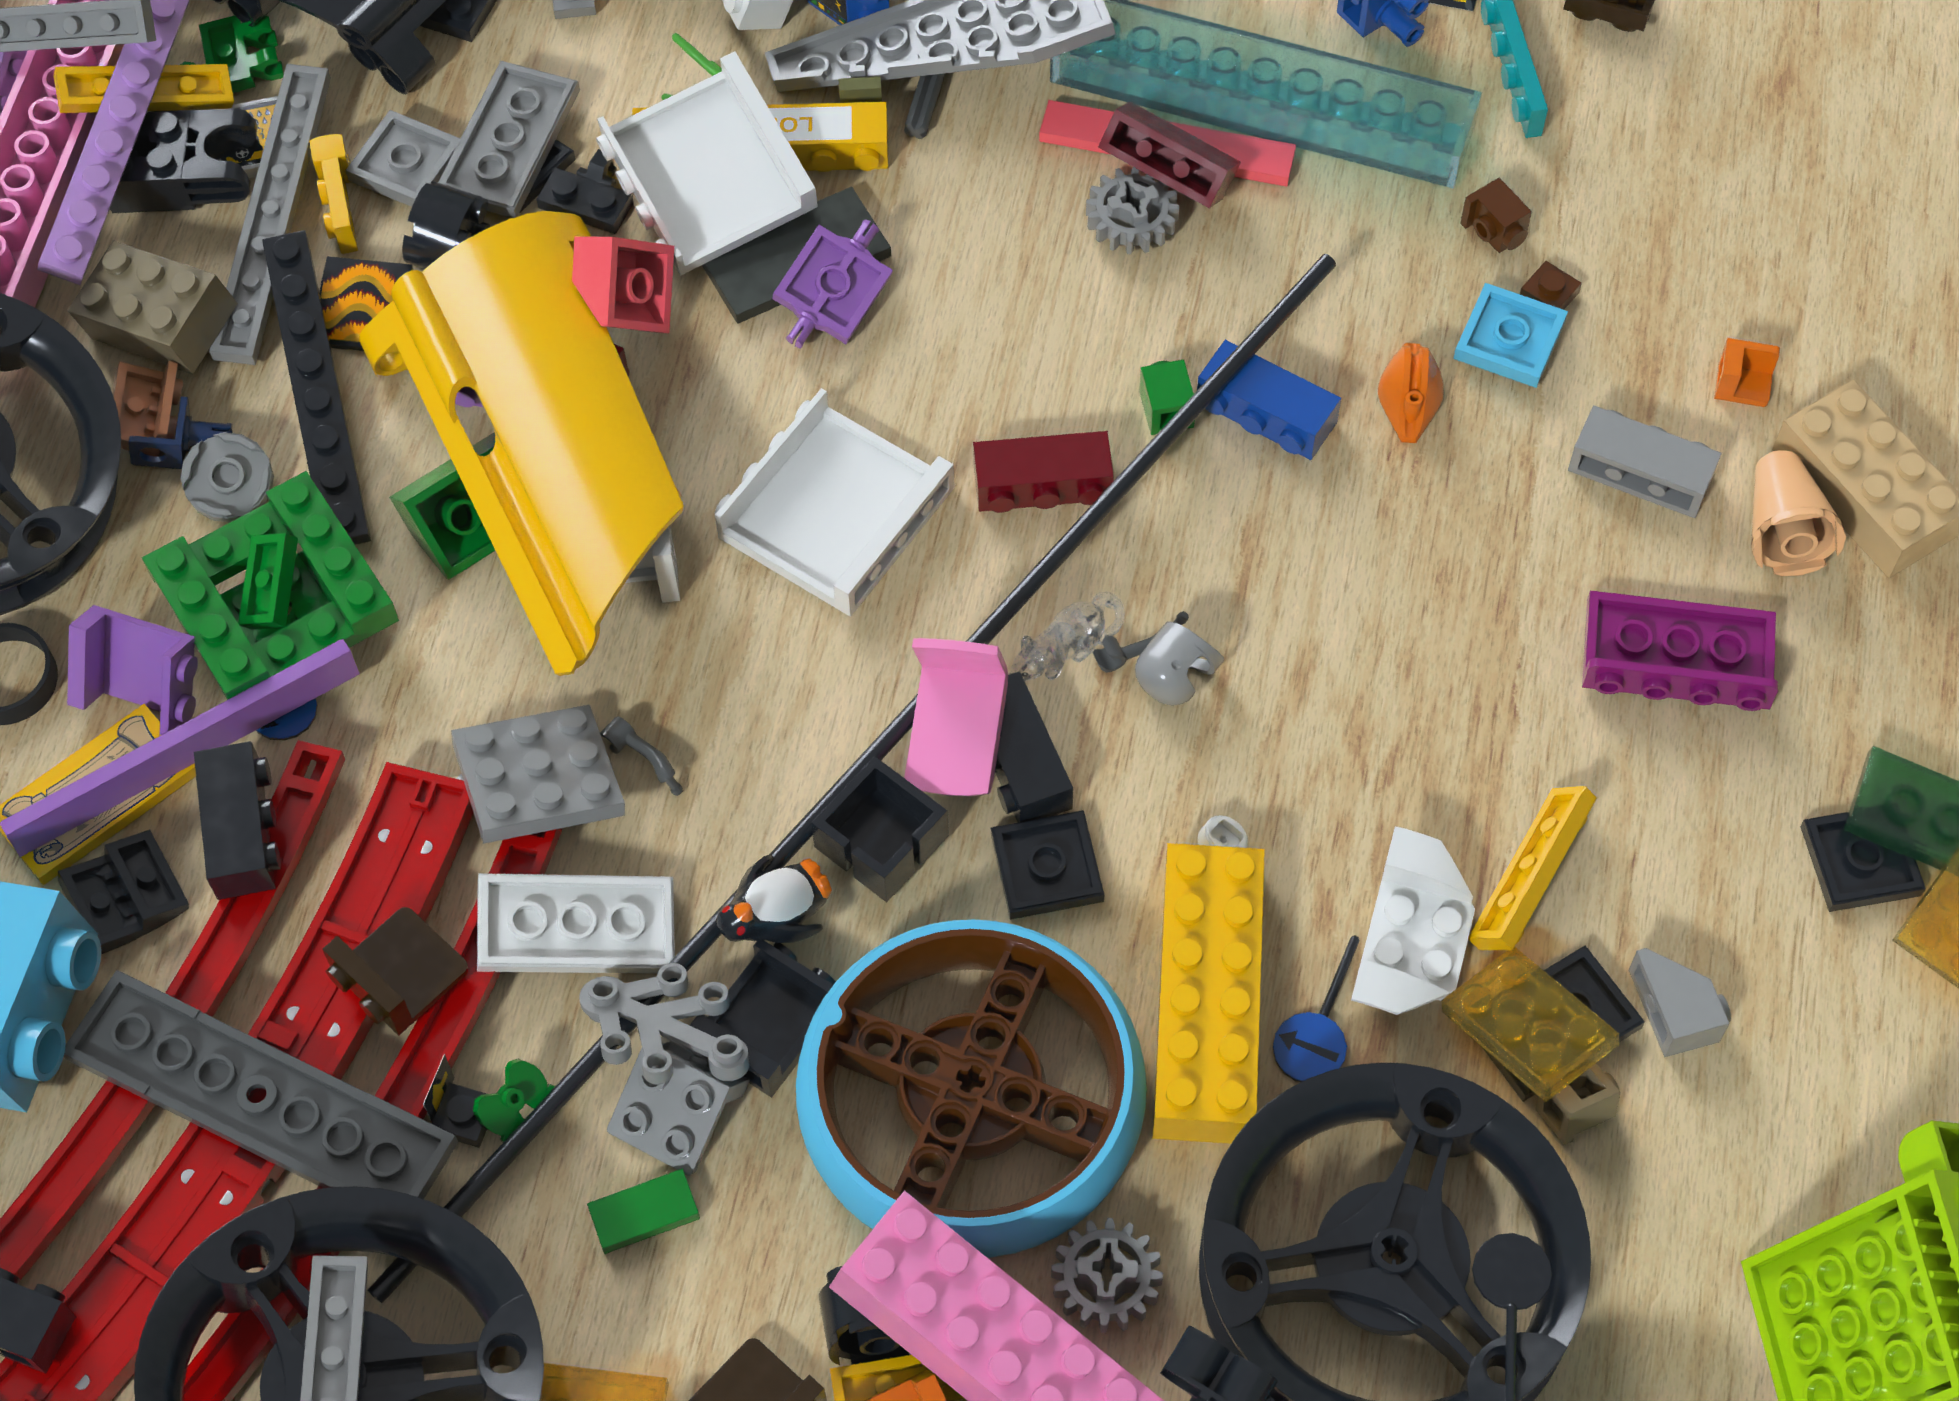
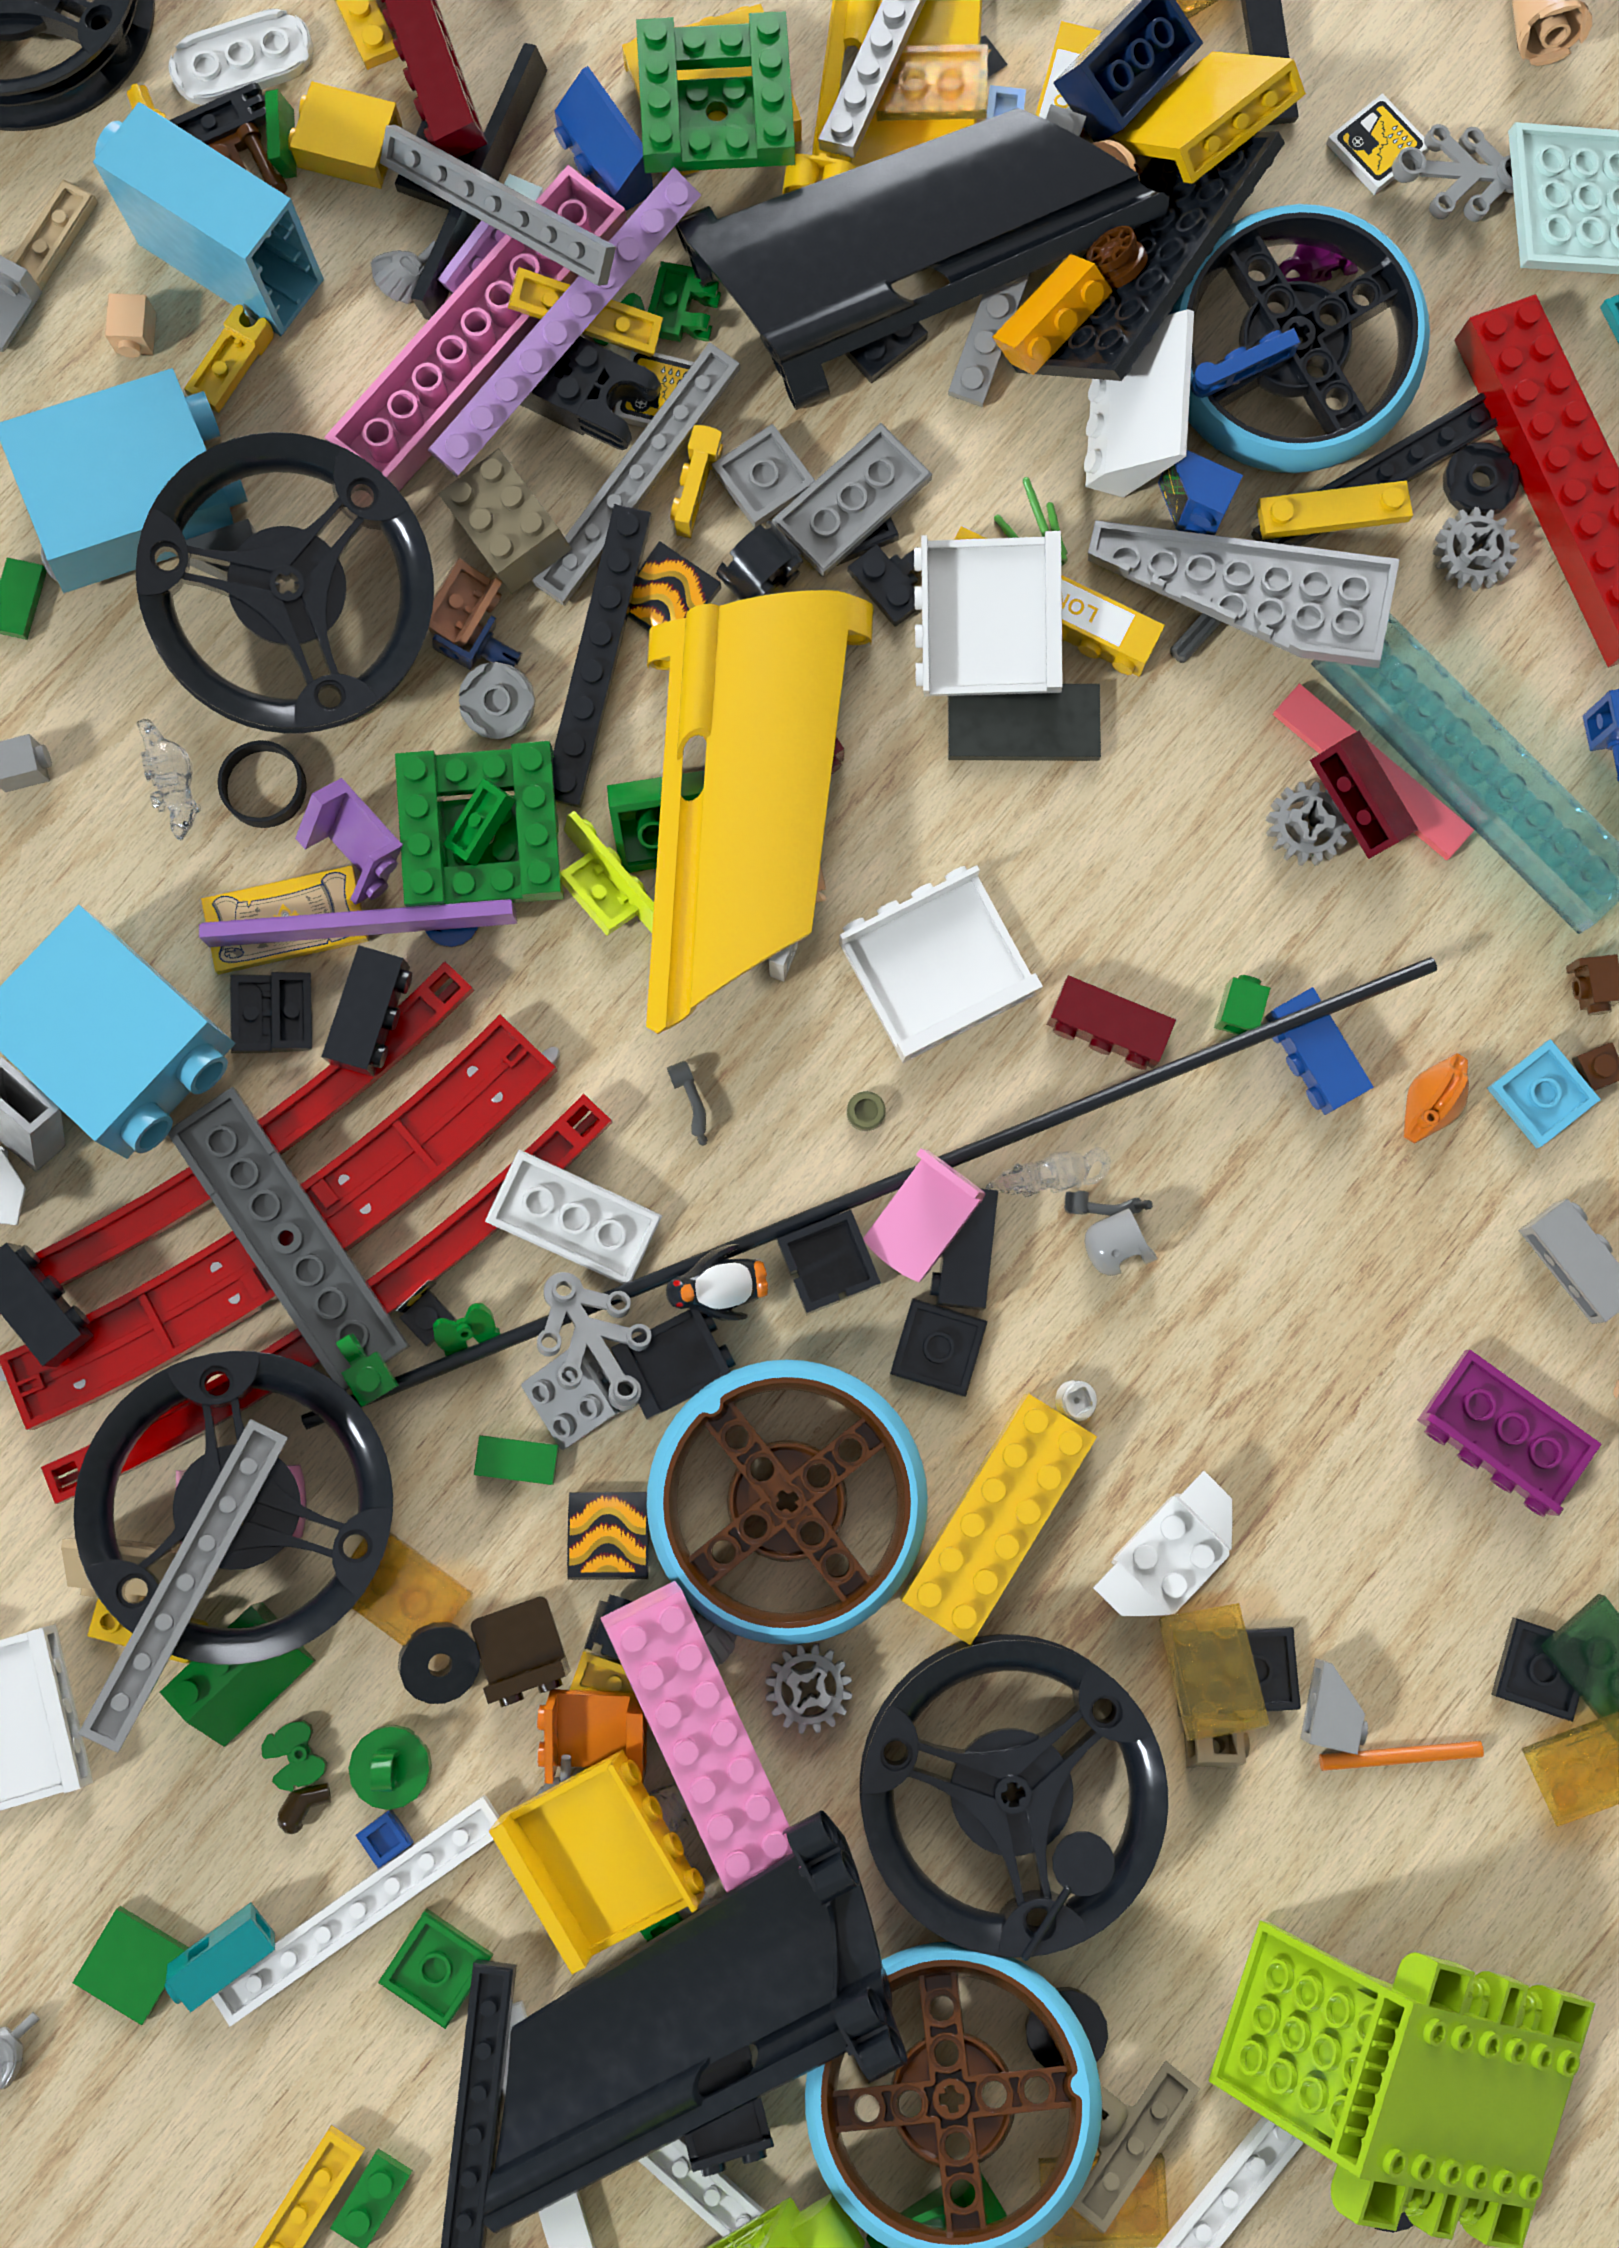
camera: 25 degrees right, 20 degrees up
(396, 969) = (425, 1195): dark brown bracket -> none
(423, 1179) = (368, 1375): none -> green plate
(439, 589) = (602, 882): none -> neon yellow bracket
(537, 773) = (603, 1082): light grey plate -> none
(625, 281) = (871, 693): coral slope -> none
(791, 1234) = (607, 1536): none -> slope
(832, 284) = (1036, 770): medium lavender plate -> none
(837, 677) = (866, 1111): none -> olive tile
(860, 89) = (1150, 602): olive tile -> none
(1312, 1041) = (1051, 1590): blue piece -> none
(1532, 868) = (1290, 1548): yellow plate -> none
(1777, 1016) = (1401, 1755): none -> orange bar

